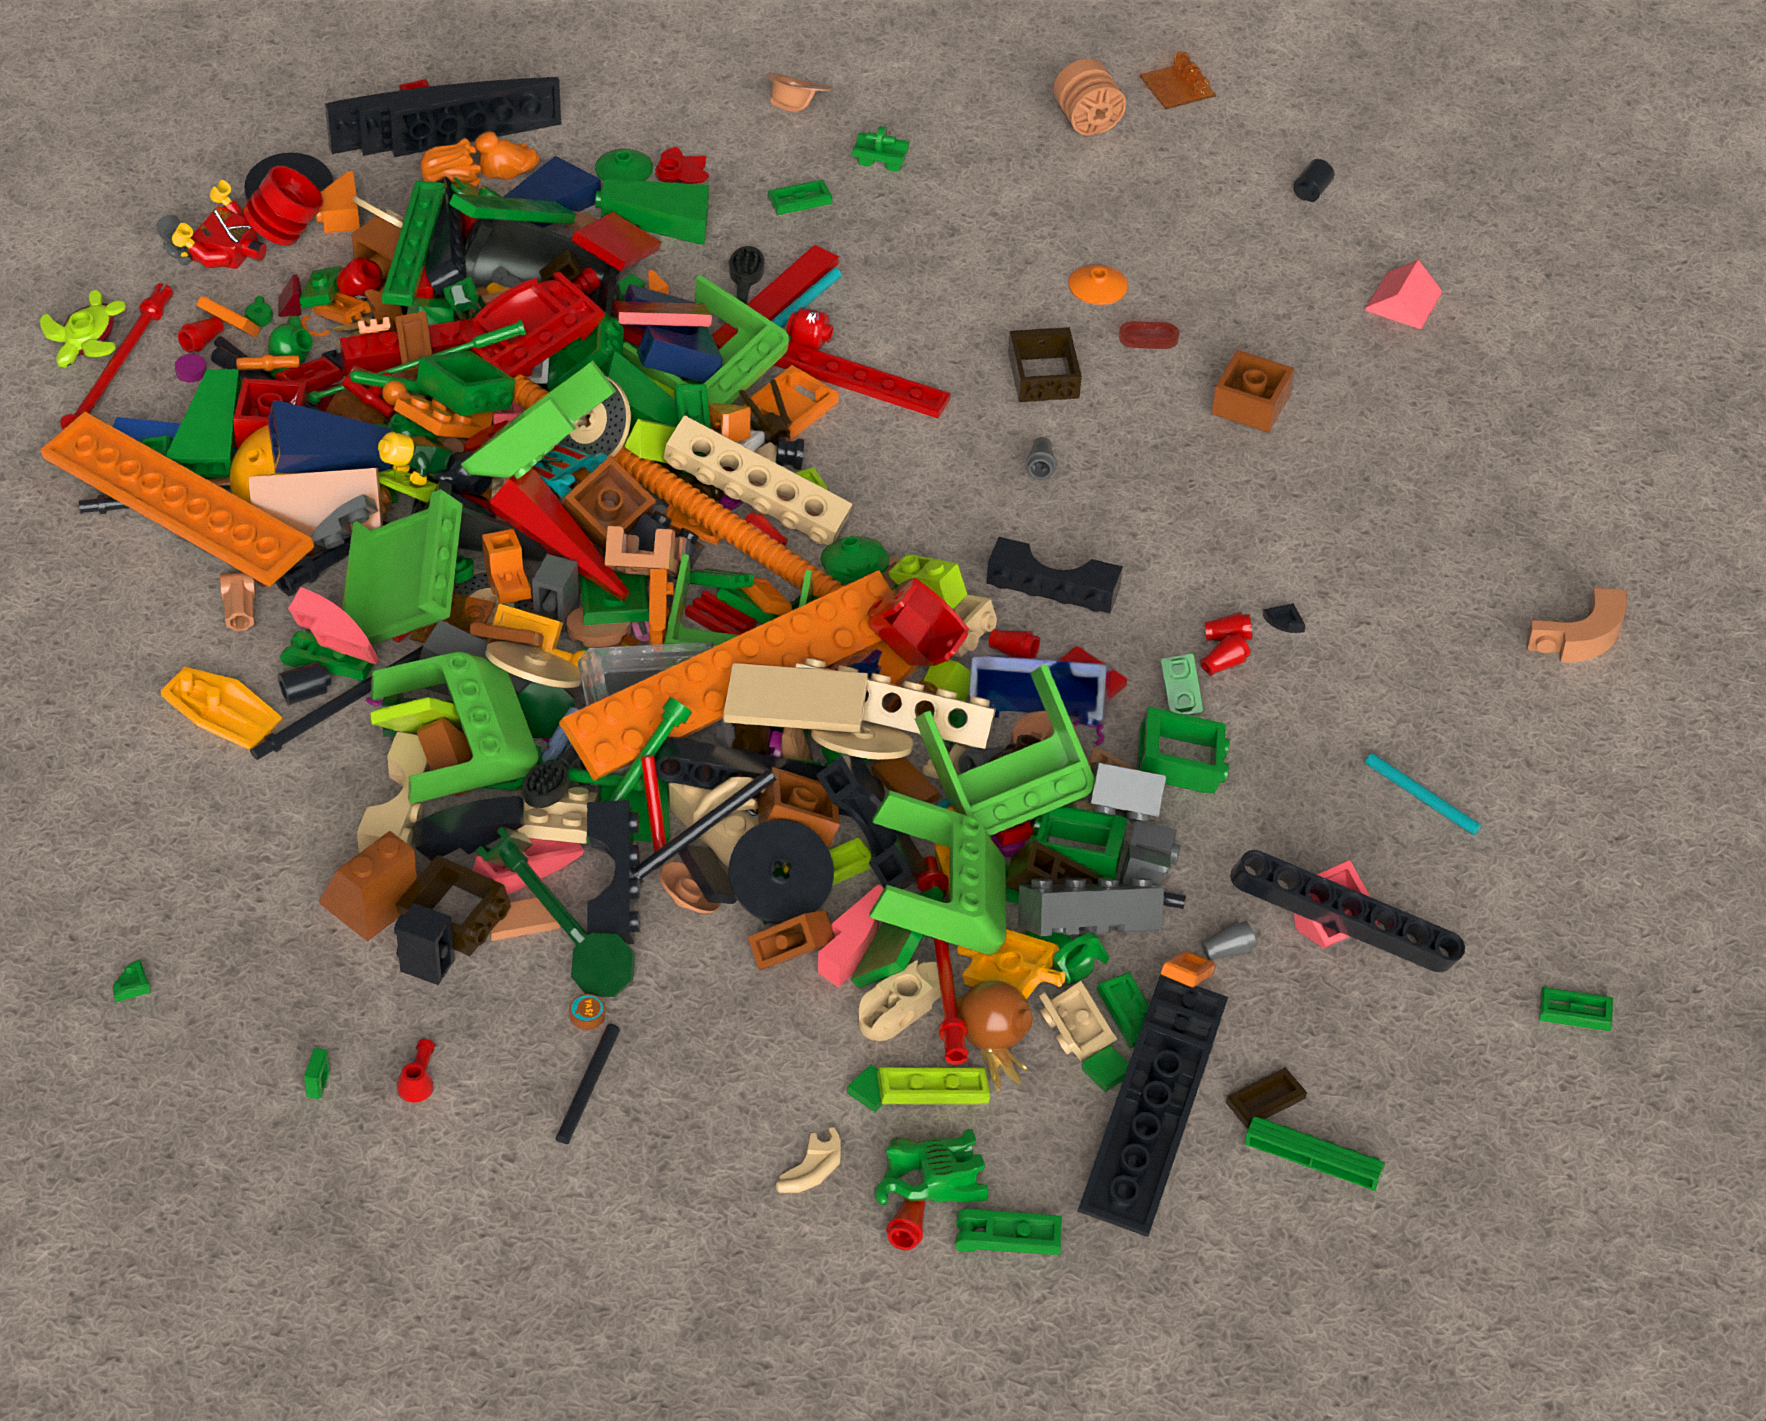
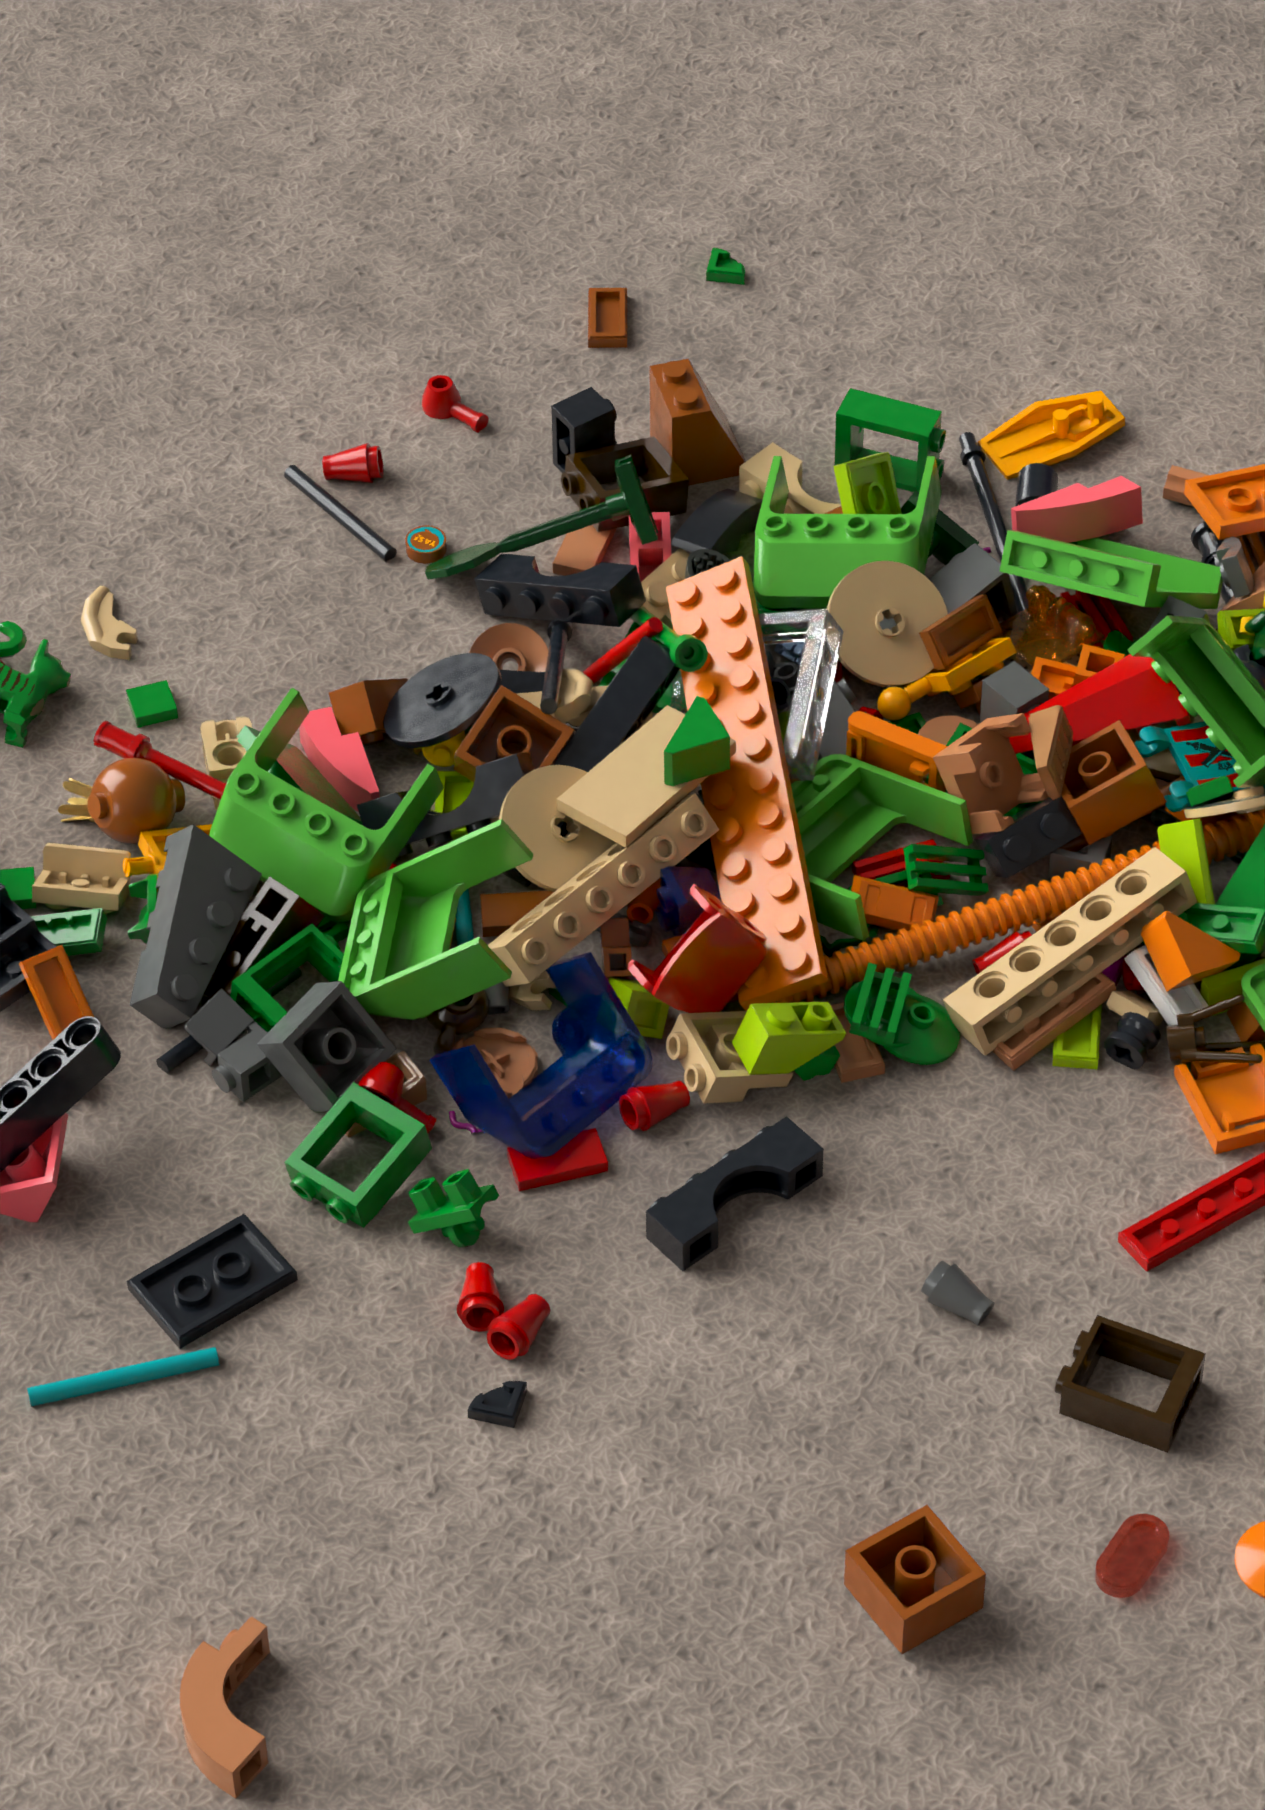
camera: 125 degrees right, 0 degrees up
(242, 1028) = (607, 318): none -> dark orange tile
(313, 767) = (894, 418): none -> green window
(317, 1073) = (502, 334): green tile -> none
(532, 1093) = (355, 464): none -> red cone
(590, 440) = (1209, 790): none -> green tile
(625, 516) = (1051, 746): none -> medium nougat slope
(766, 662) = (697, 747): none -> green slope
(862, 557) = (886, 981): none -> green tile
(933, 1085) = (127, 710): lime tile -> none
(1126, 753) = (387, 1083): none -> red bar
(1320, 789) = (212, 1280): none -> black tile

